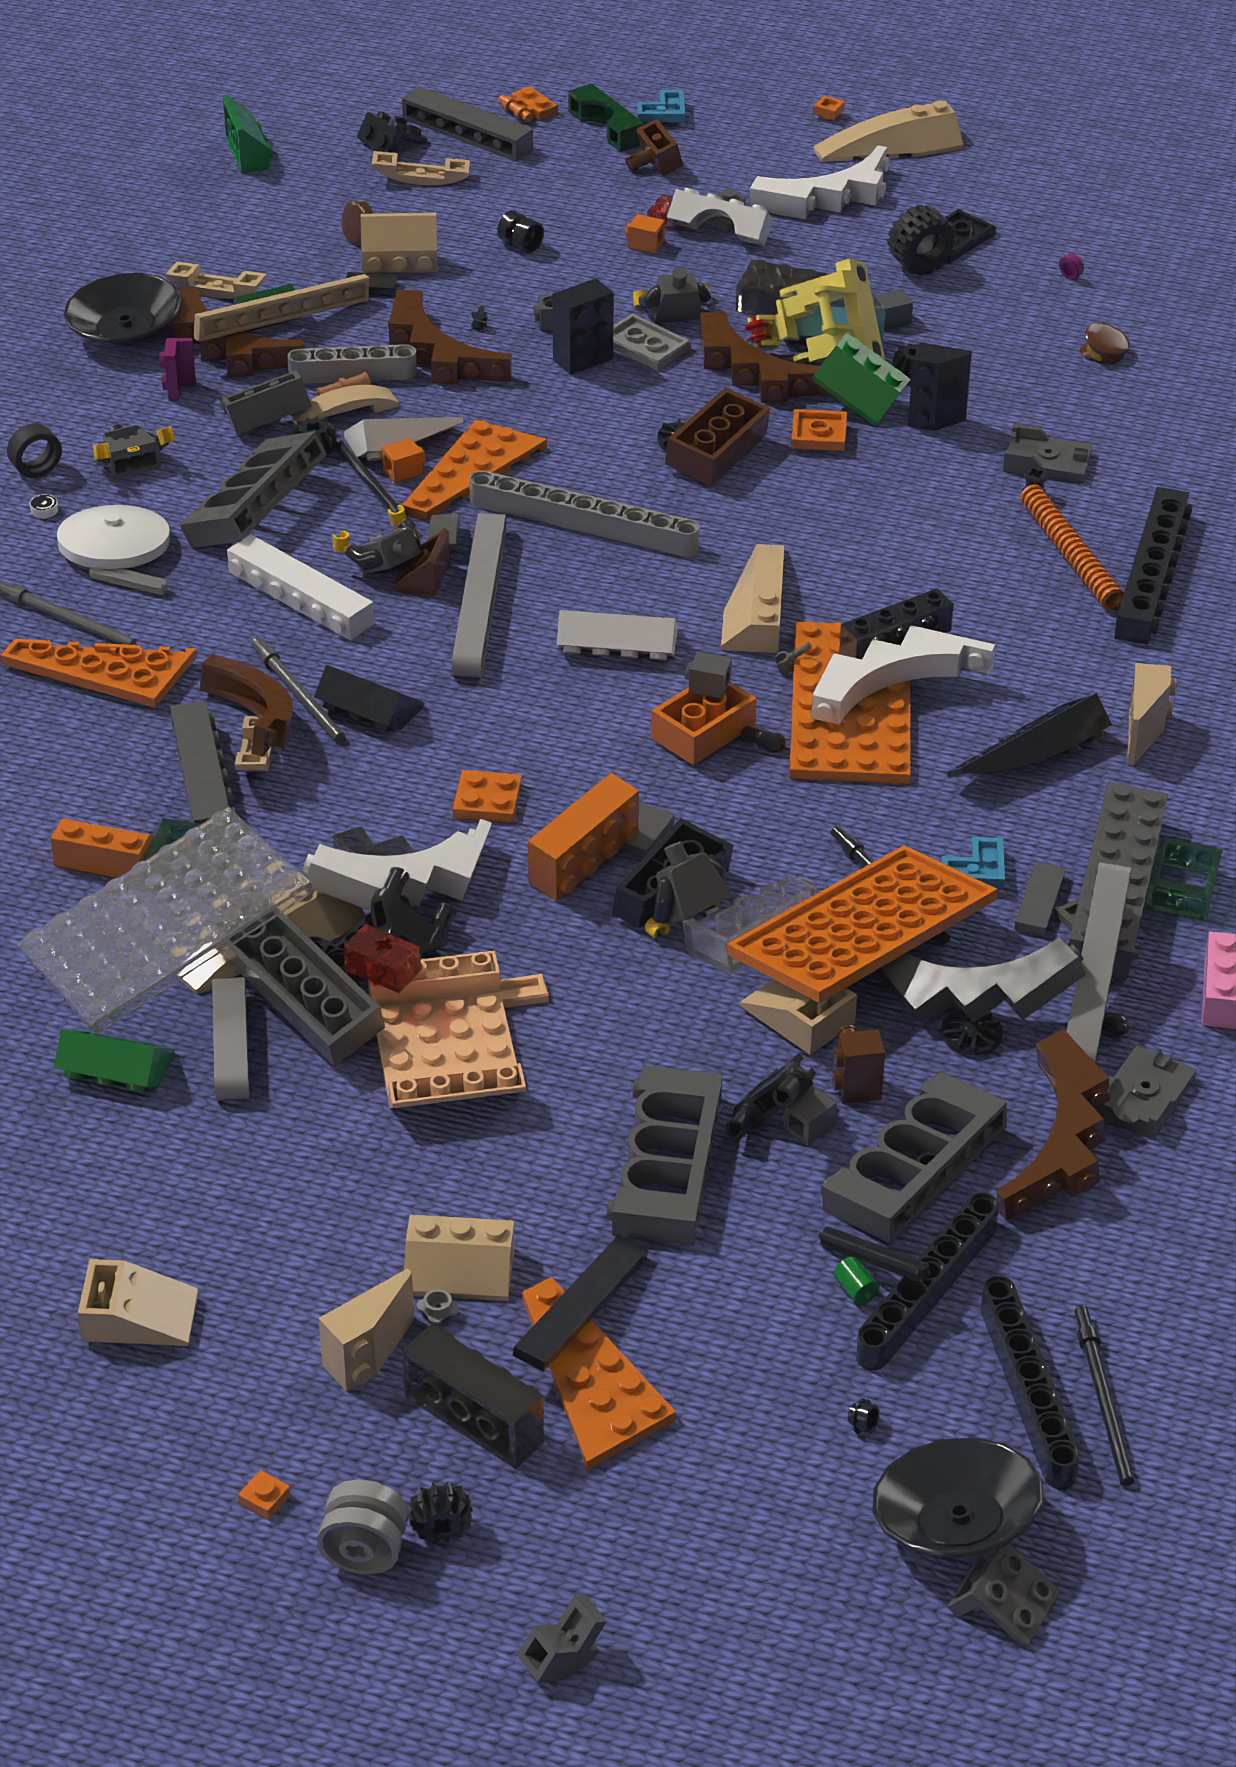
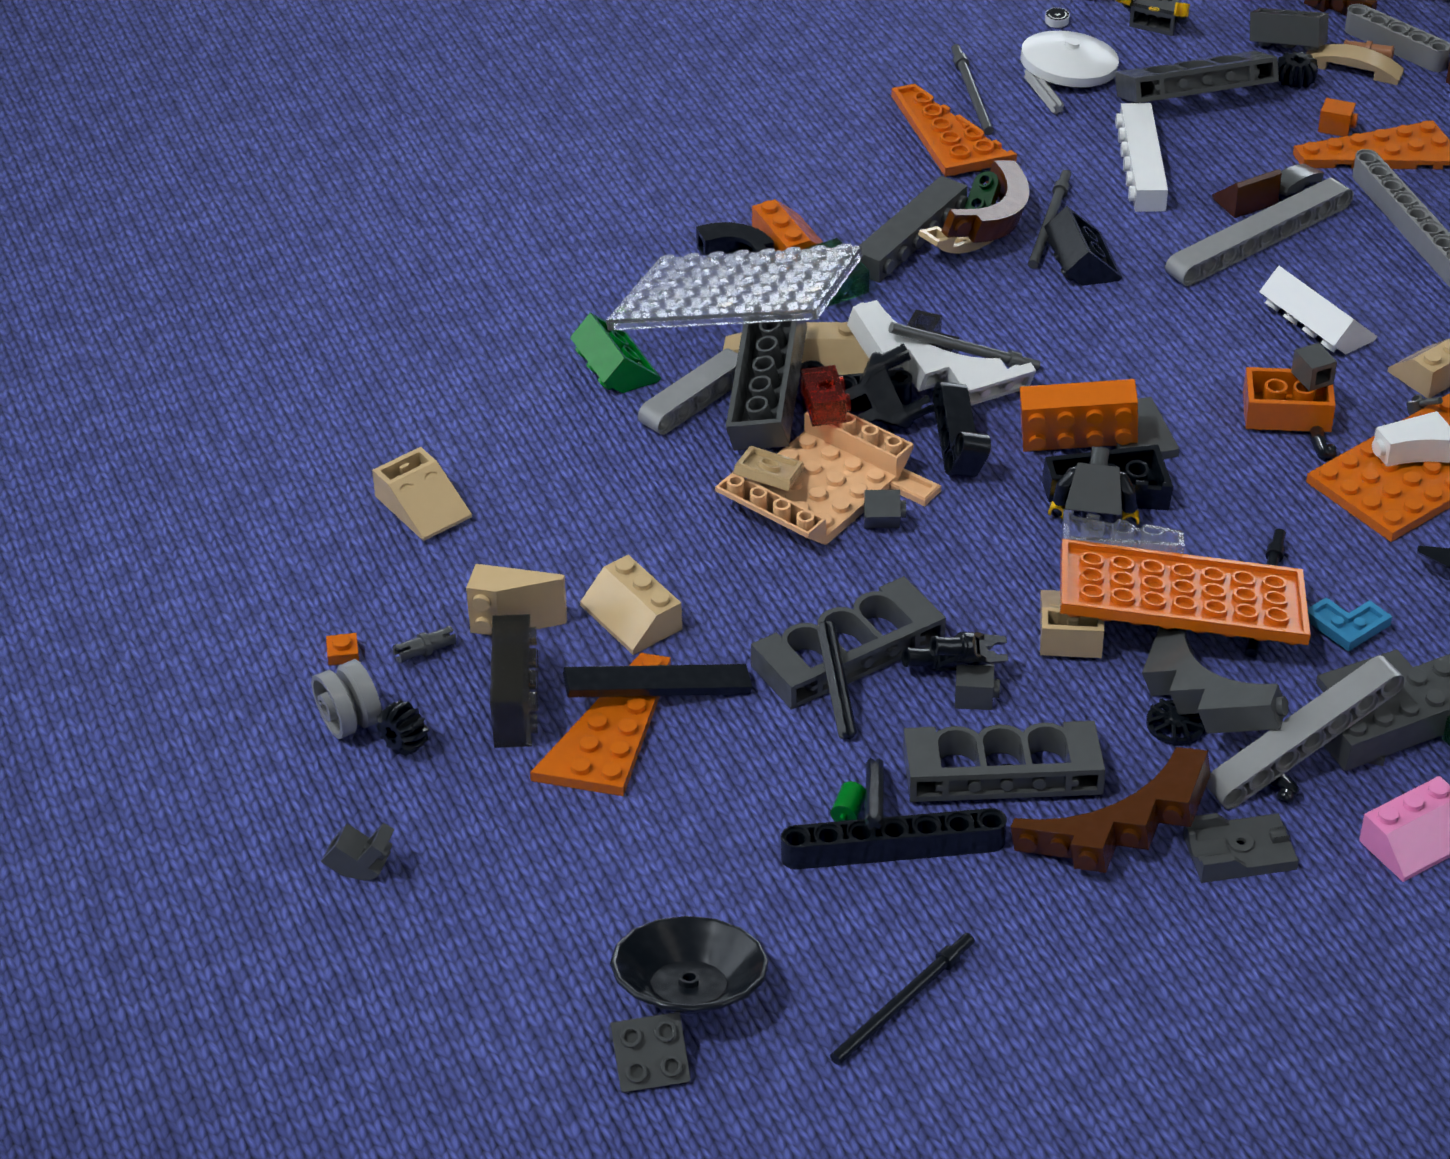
camera: 50 degrees right, 0 degrees up
(67, 881) = (730, 238): none -> black arch
(224, 701) = (984, 194): none -> dark green plate
(334, 1431) = (424, 644): none -> dark grey pin
(368, 478) = (1286, 147): black bar -> none
(371, 435) = (1367, 100): white wedge -> none
(384, 550) = (1233, 164): torso -> none
(410, 1055) = (768, 468): none -> tan tile
(437, 1306) = (583, 623): light grey plate -> none
(446, 829) = (1009, 358): none -> dark grey bar
(487, 796) = (1073, 358): orange plate -> none
(506, 919) = (961, 447): none -> black beam
(537, 1025) = (883, 509): none -> dark grey brick
(719, 1187) = (836, 680): none -> black axle
(858, 1064) = (1045, 676): reddish brown brick -> none
(863, 1416) = (728, 889): black plate -> none
(1030, 1383) = (860, 948): black beam -> none

